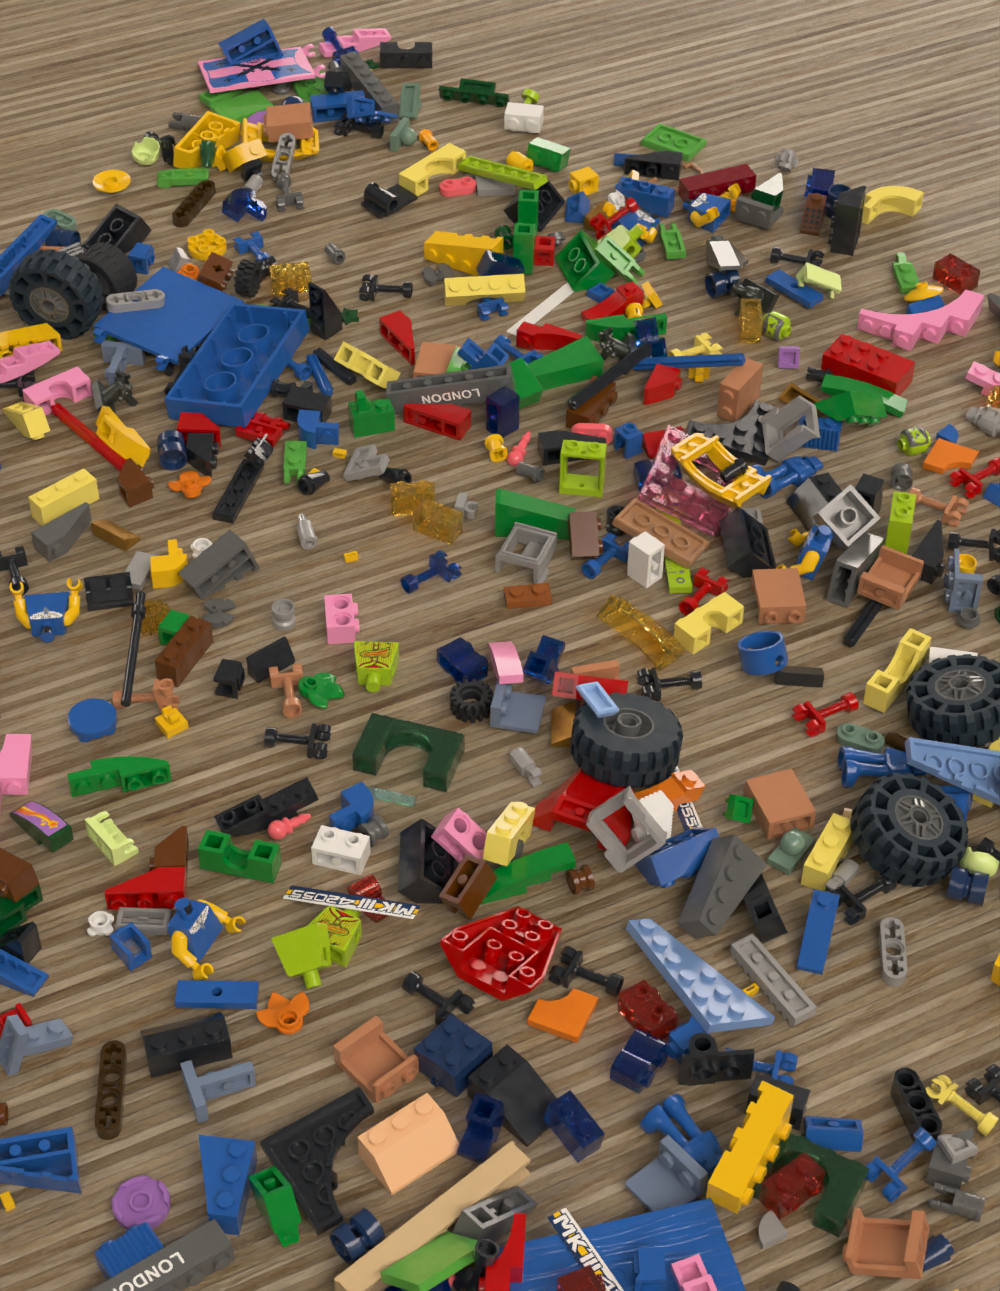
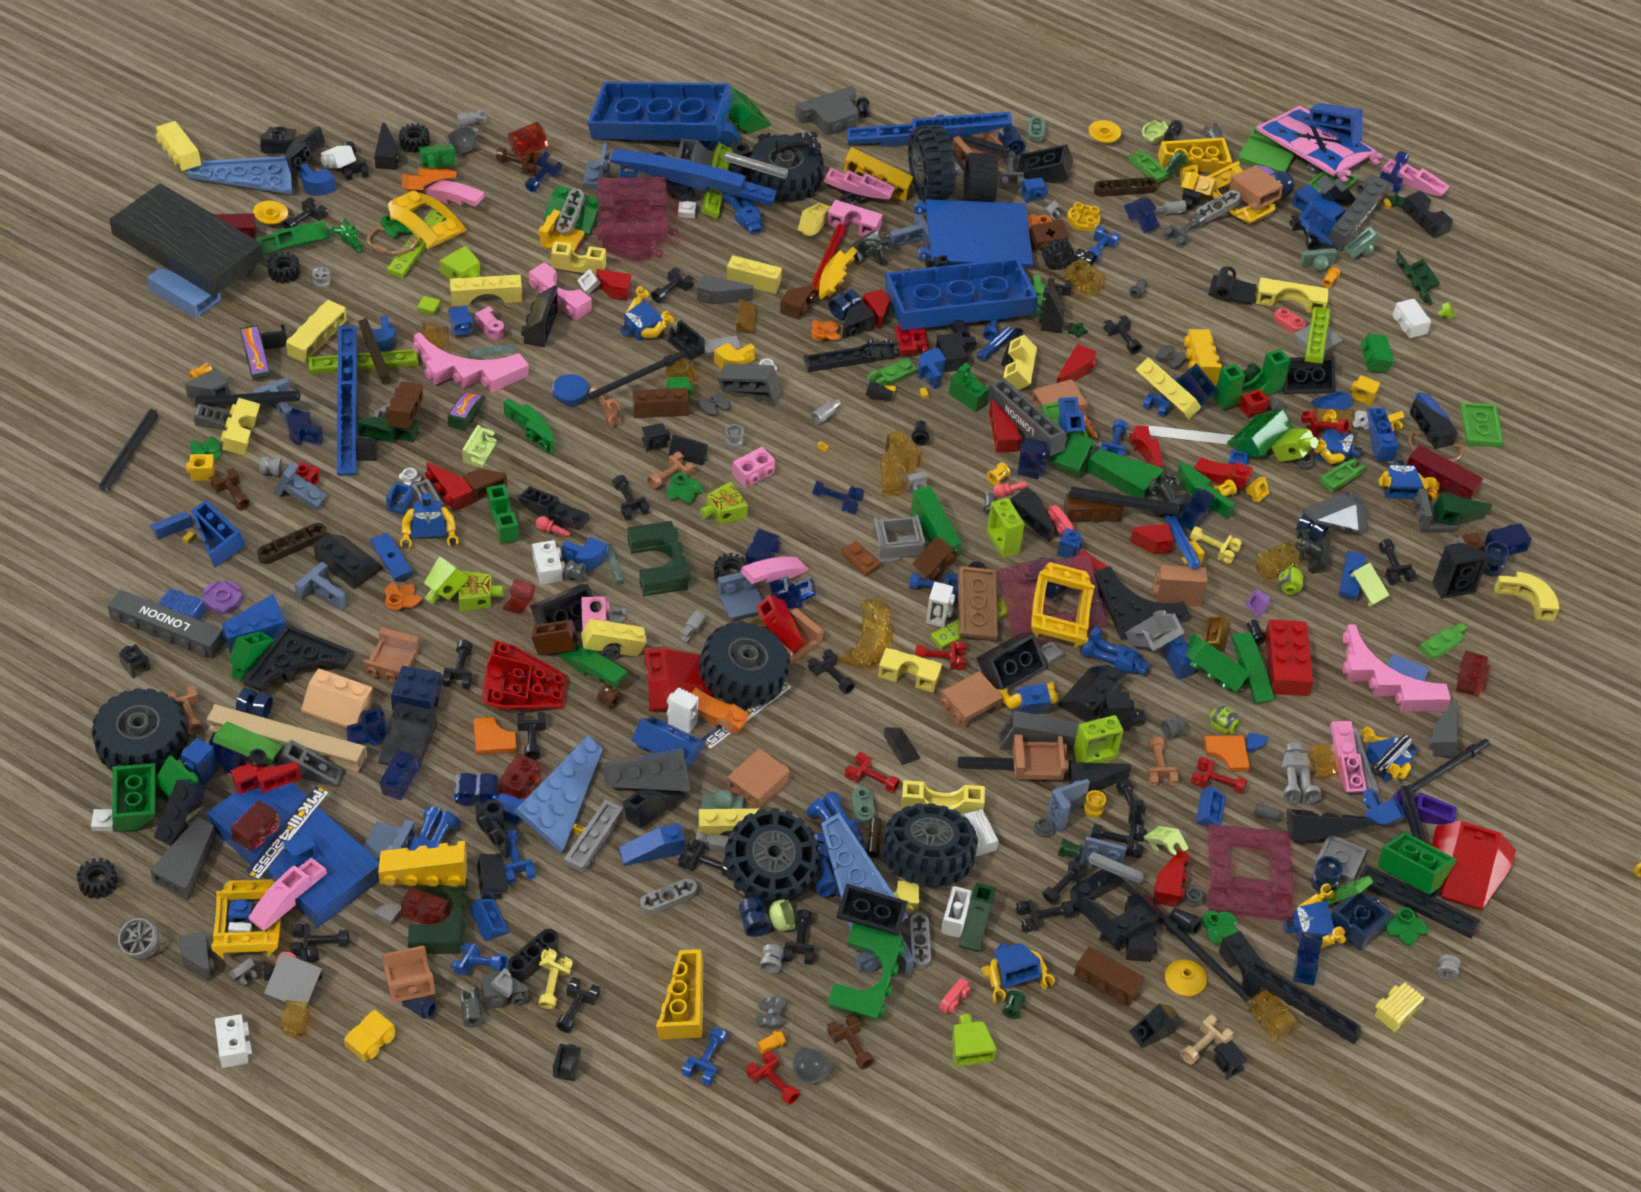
camera: 55 degrees right, 5 degrees up
(124, 301) = (960, 200): light grey beam -> none
(171, 721) = (598, 428): yellow tile -> none
(352, 902) = (503, 586): sticker -> none
(366, 463) = (917, 410): light grey plate -> none
(520, 161) = (1351, 342): yellow brick -> none
(597, 699) = (755, 626): light blue tile -> none
(616, 852) = (651, 694): light grey piece -> none
(618, 259) = (1272, 448): bright green hinge -> none
(732, 471) = (1070, 613): black pin -> none
(739, 808) = (733, 757): green tile -> none
(766, 649) = (886, 709): blue piece -> none
(786, 160) = (1522, 503): light grey gear -> none
(847, 517) = (1071, 700): light grey brick -> none
(923, 291) = (1423, 659): yellow dish -> none

